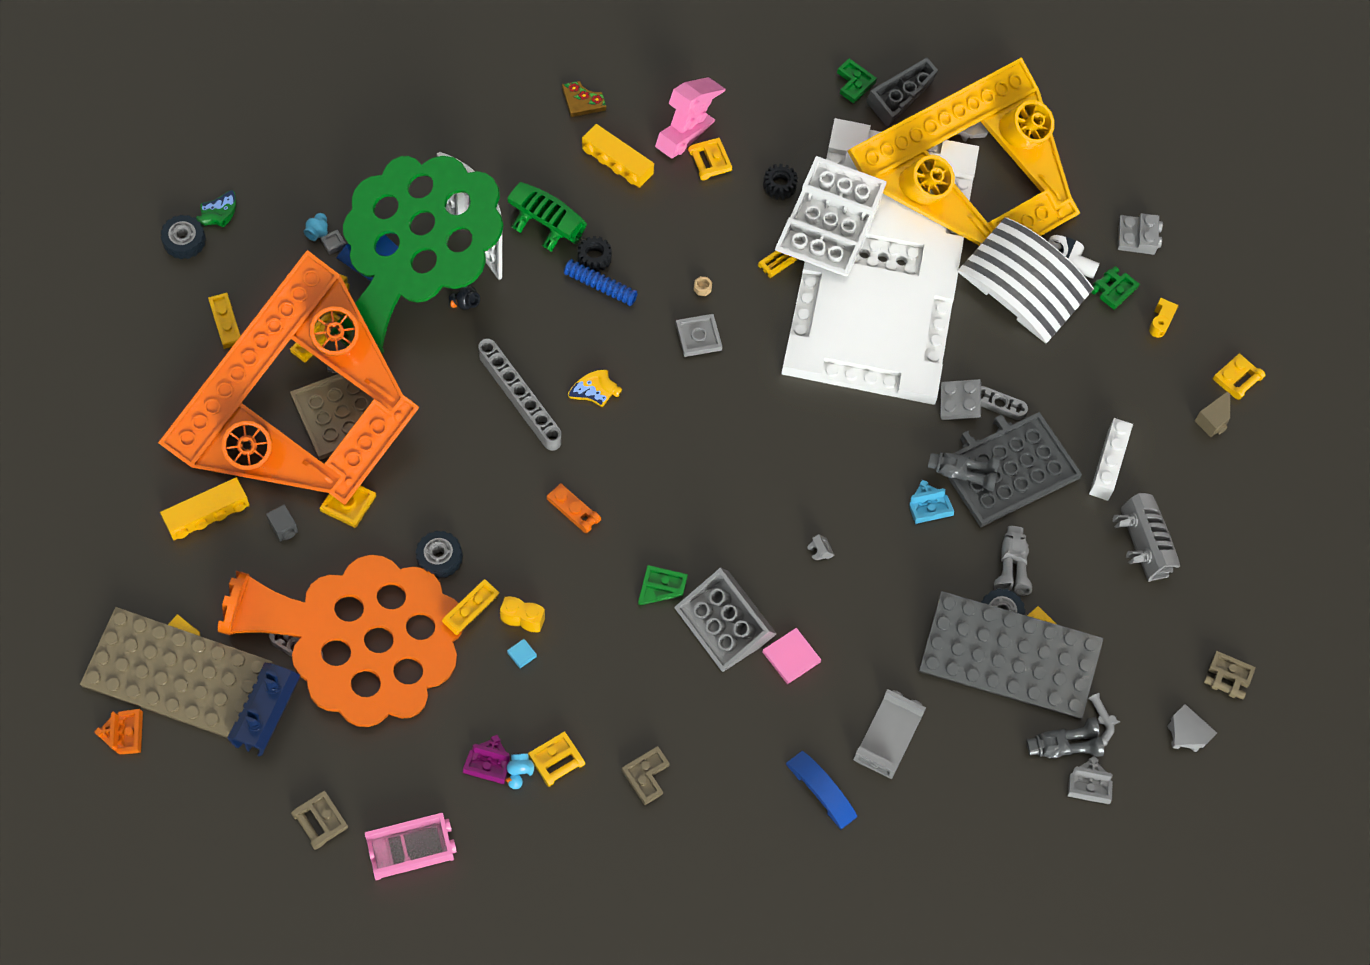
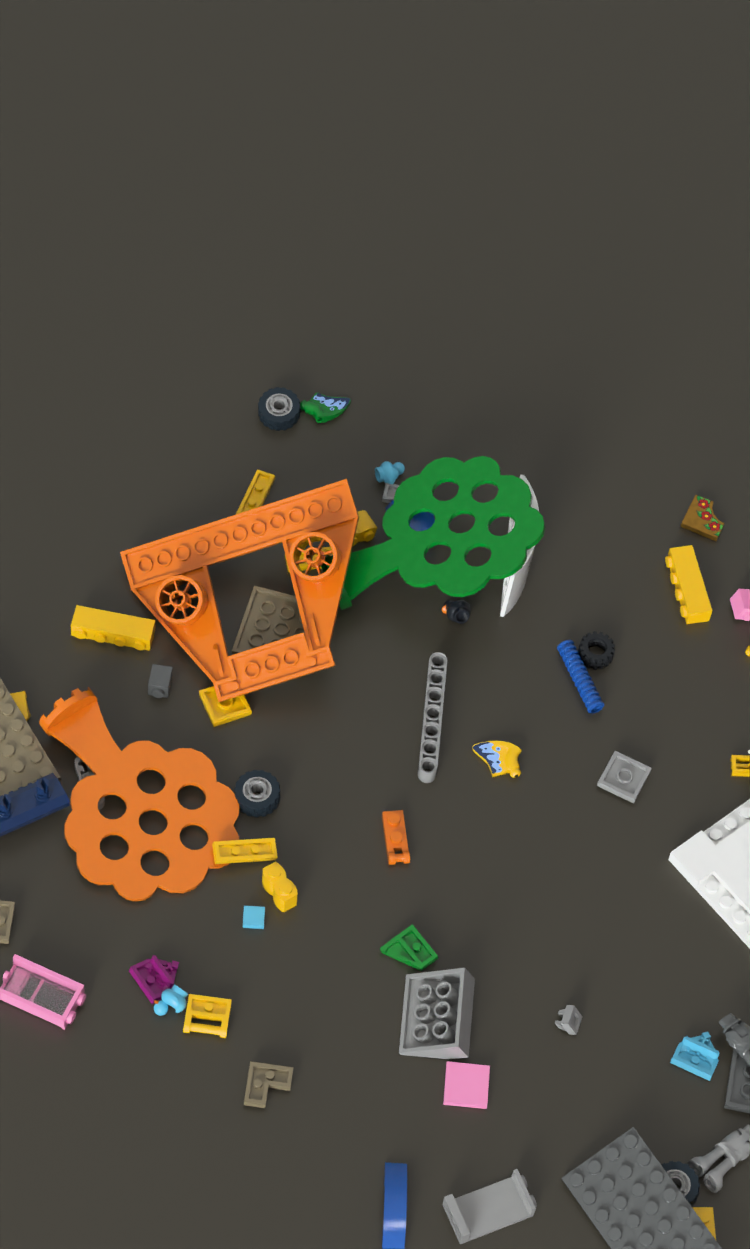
camera: 40 degrees right, 5 degrees down
(548, 211) = (585, 588): green piece -> none
(702, 286) = (665, 740): tan tile -> none

